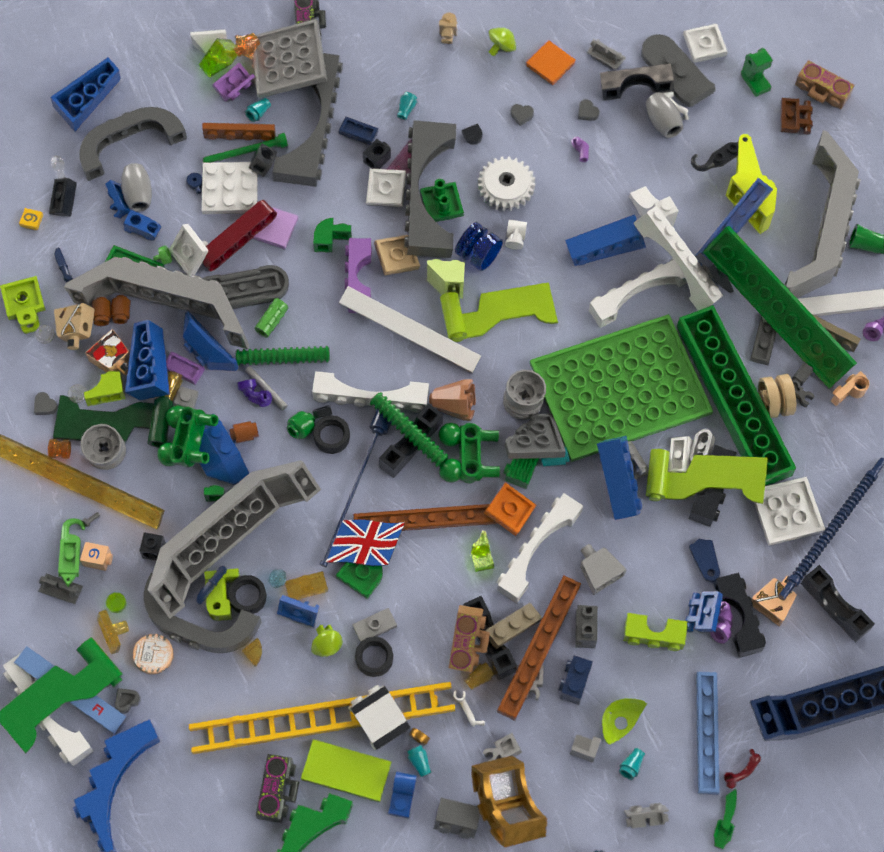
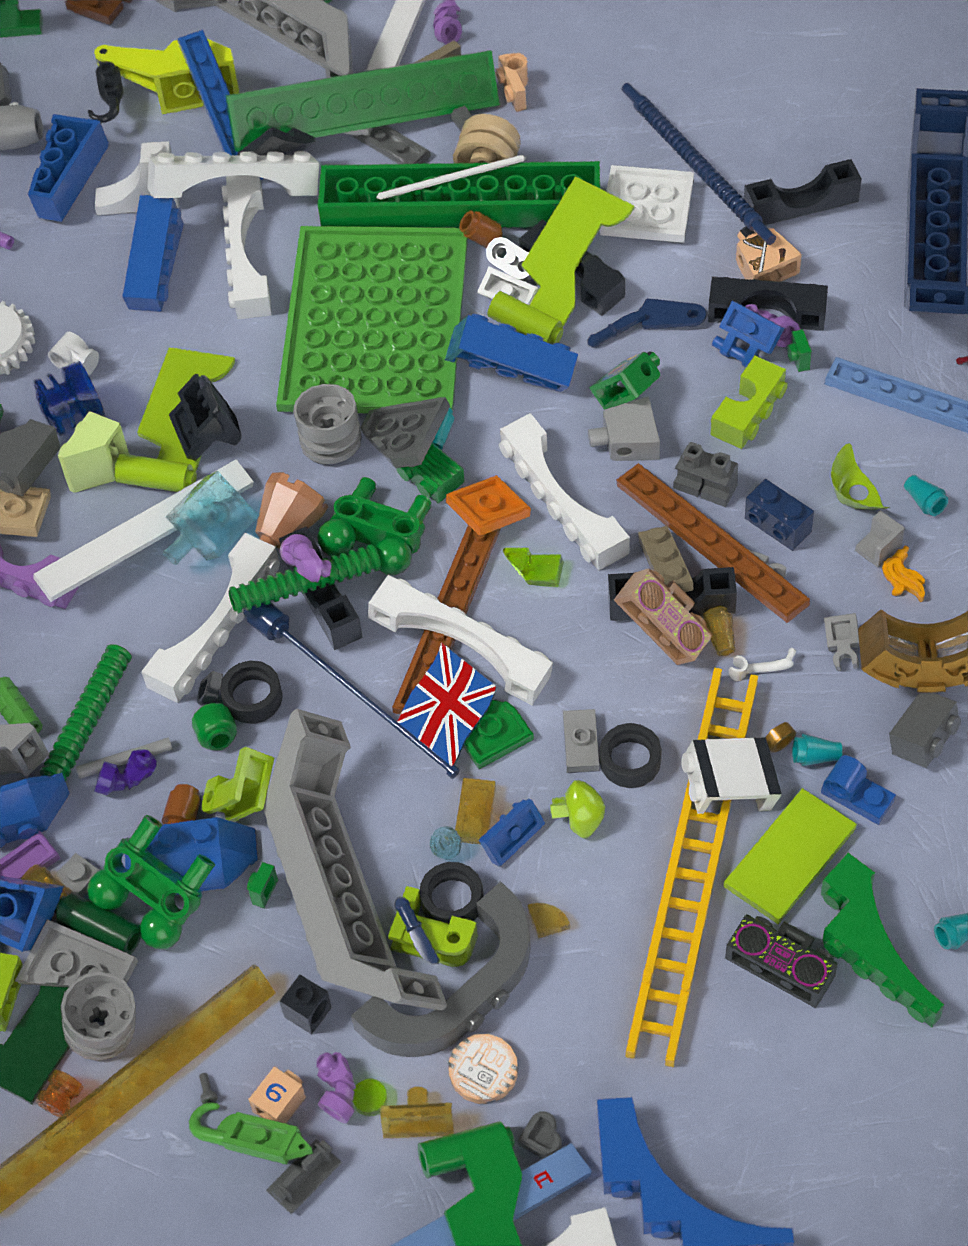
camera: 60 degrees left, 10 degrees down
(120, 581) = (337, 1073): none -> medium lavender arm
(134, 421) = (66, 955): none -> light grey wing
(260, 455) = (243, 792): none -> lime piece
(403, 574) = (402, 606): none -> white arch
(419, 417) = (299, 552): none -> medium lavender arm
(428, 360) = (209, 519): none -> clear light blue brick
(499, 326) = (203, 417): none -> black piece
(566, 770) = (901, 577): none -> light orange piece
(635, 553) = (635, 374): none -> green torso
(651, 161) = (66, 164): none -> blue wedge
(683, 533) = (615, 328): none -> dark blue piece
(709, 648) = (799, 351): none -> green plate
(714, 419) = (480, 228): none -> dark orange brick
(738, 384) = (450, 177): none -> white axle

